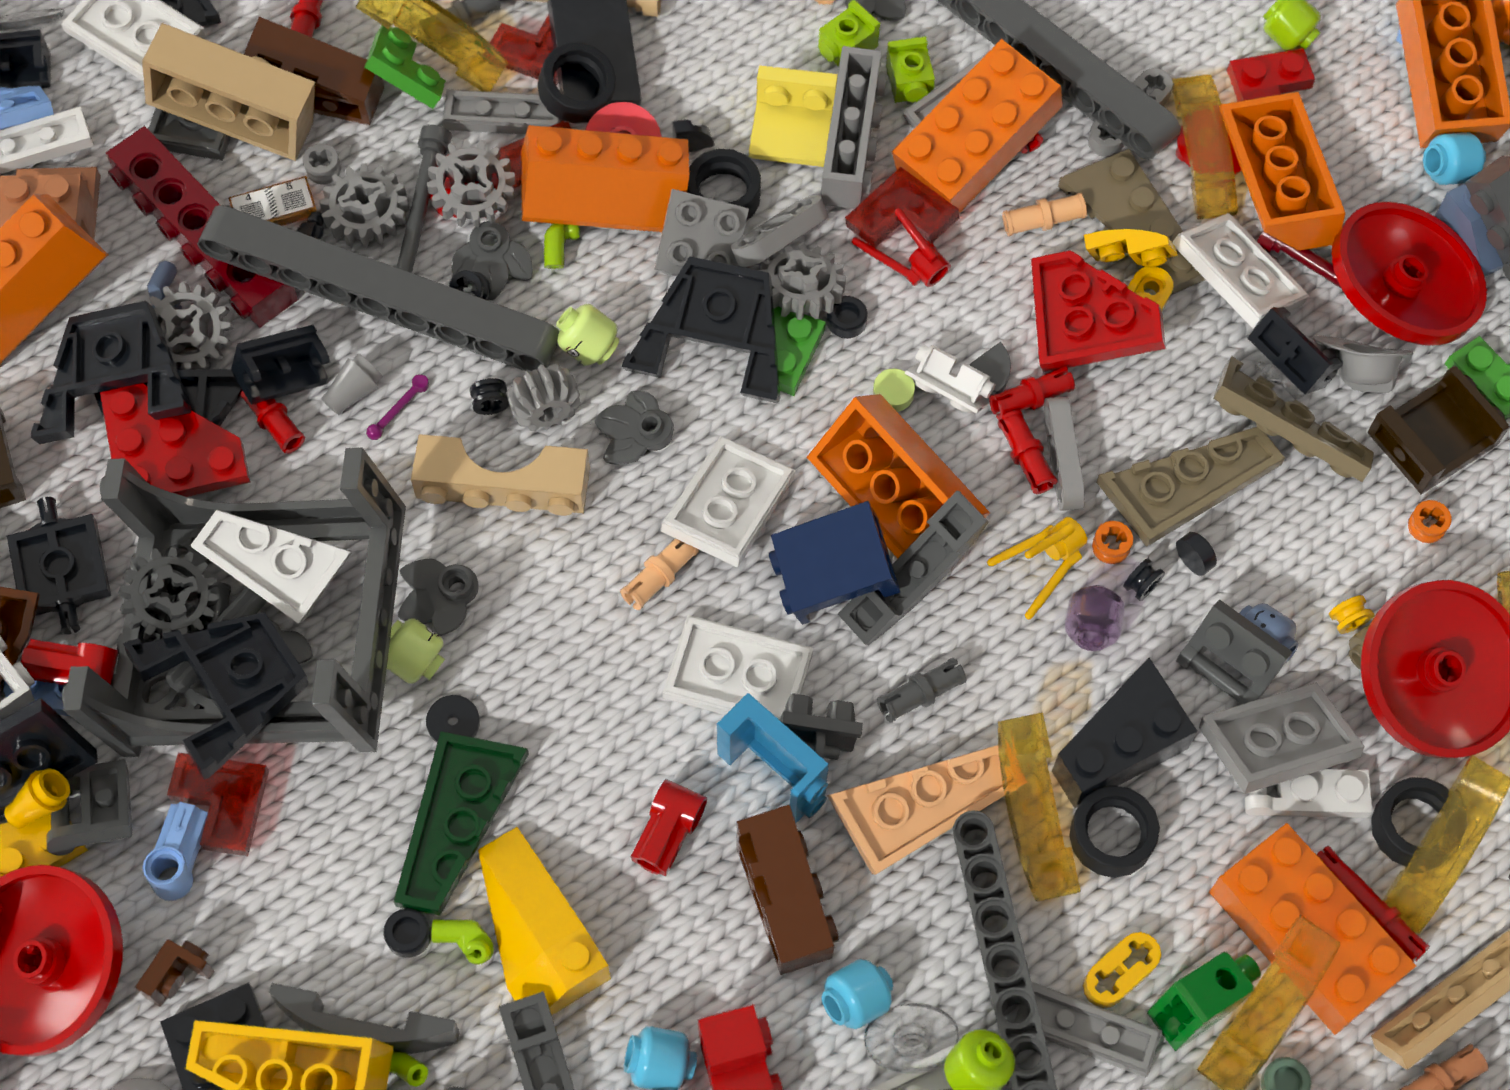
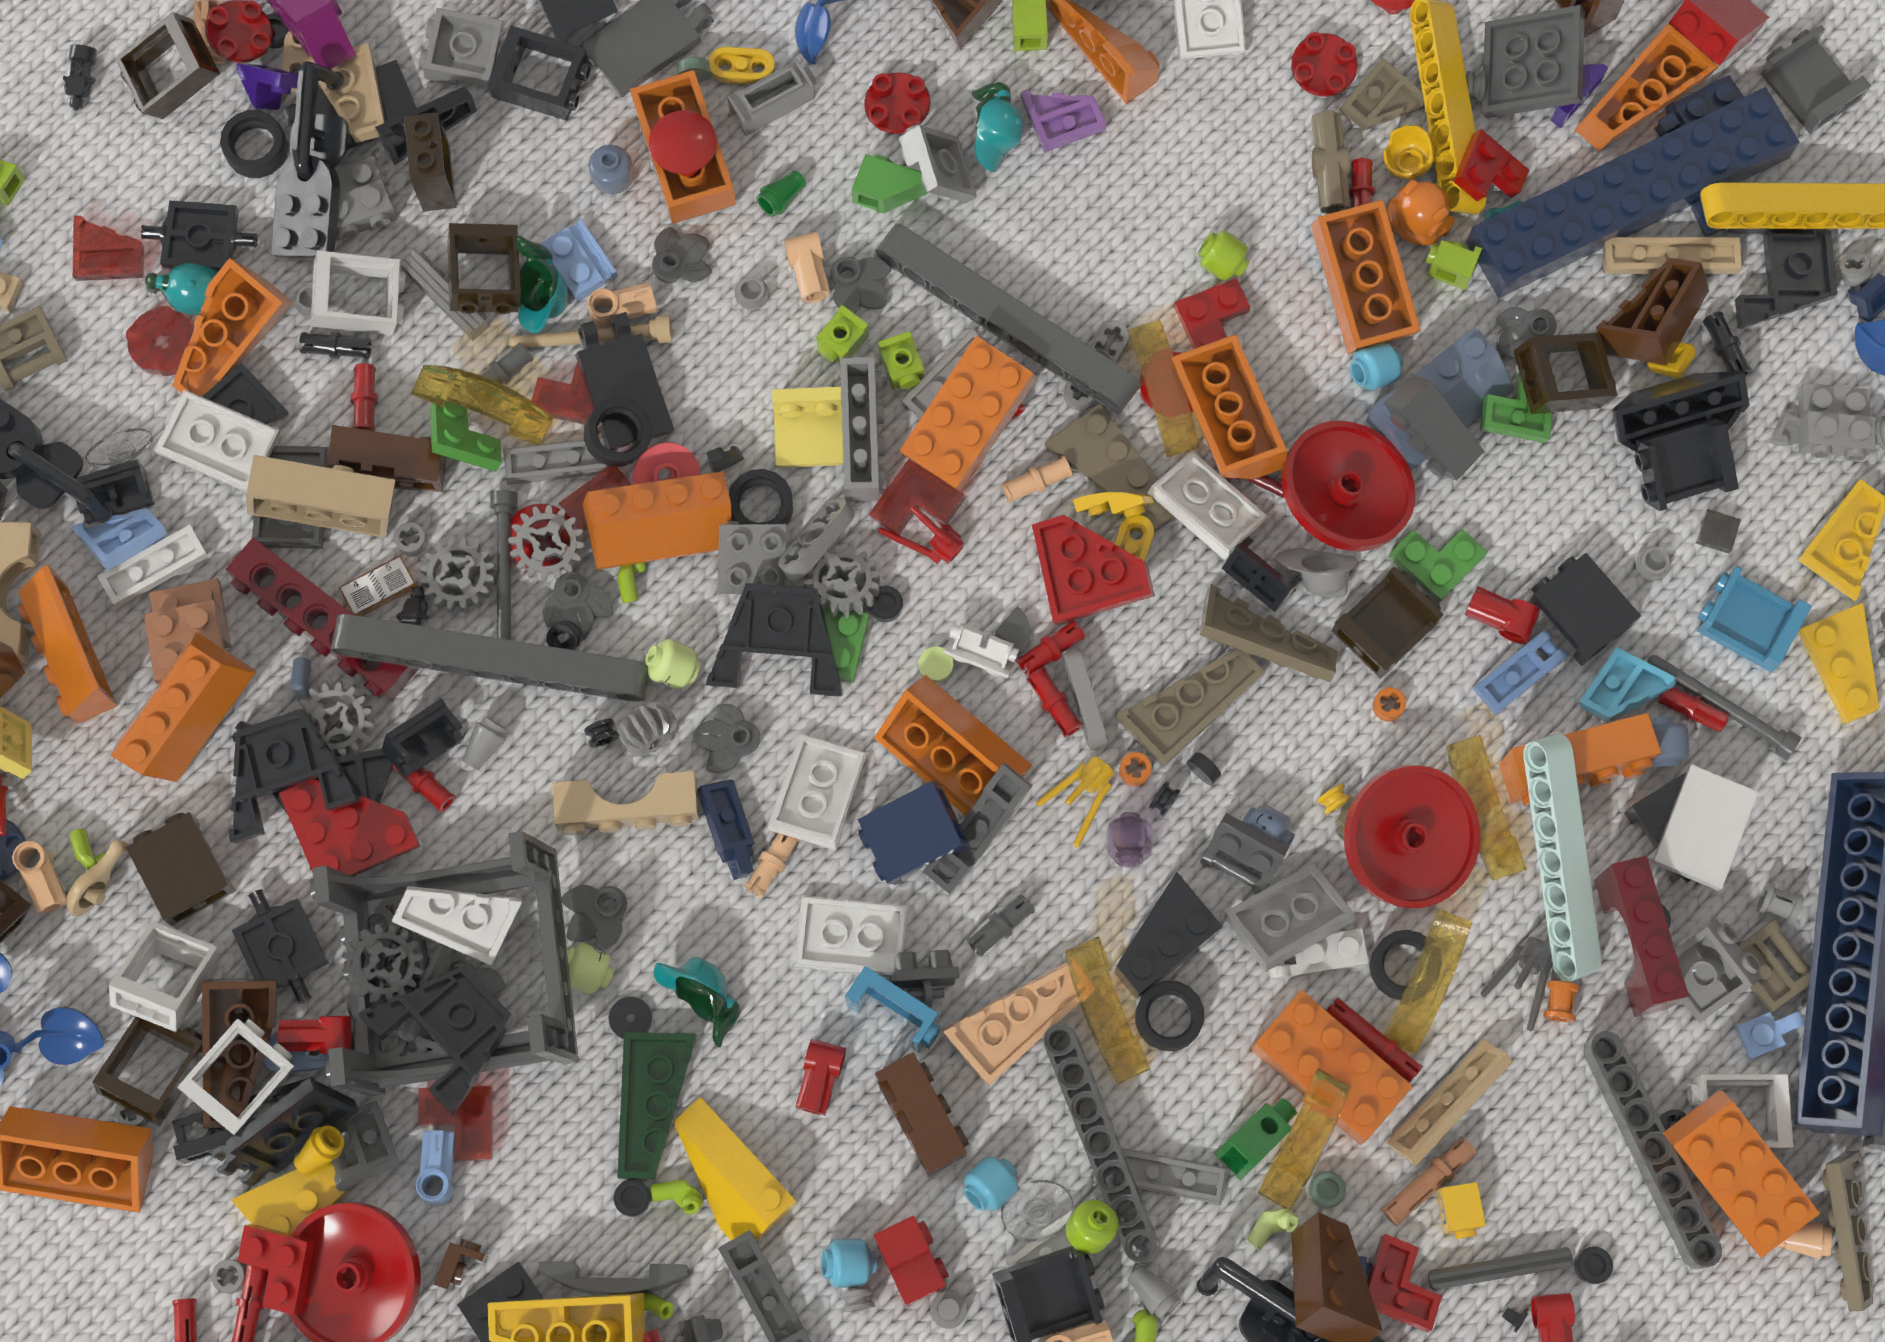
camera: 10 degrees left, 10 degrees up
(419, 384) = (539, 729): magenta hinge -> none
(546, 698) = (704, 990): none -> hair
(615, 522) = (728, 826): none -> dark blue hinge
(1114, 961) = (1197, 1131): yellow beam -> none

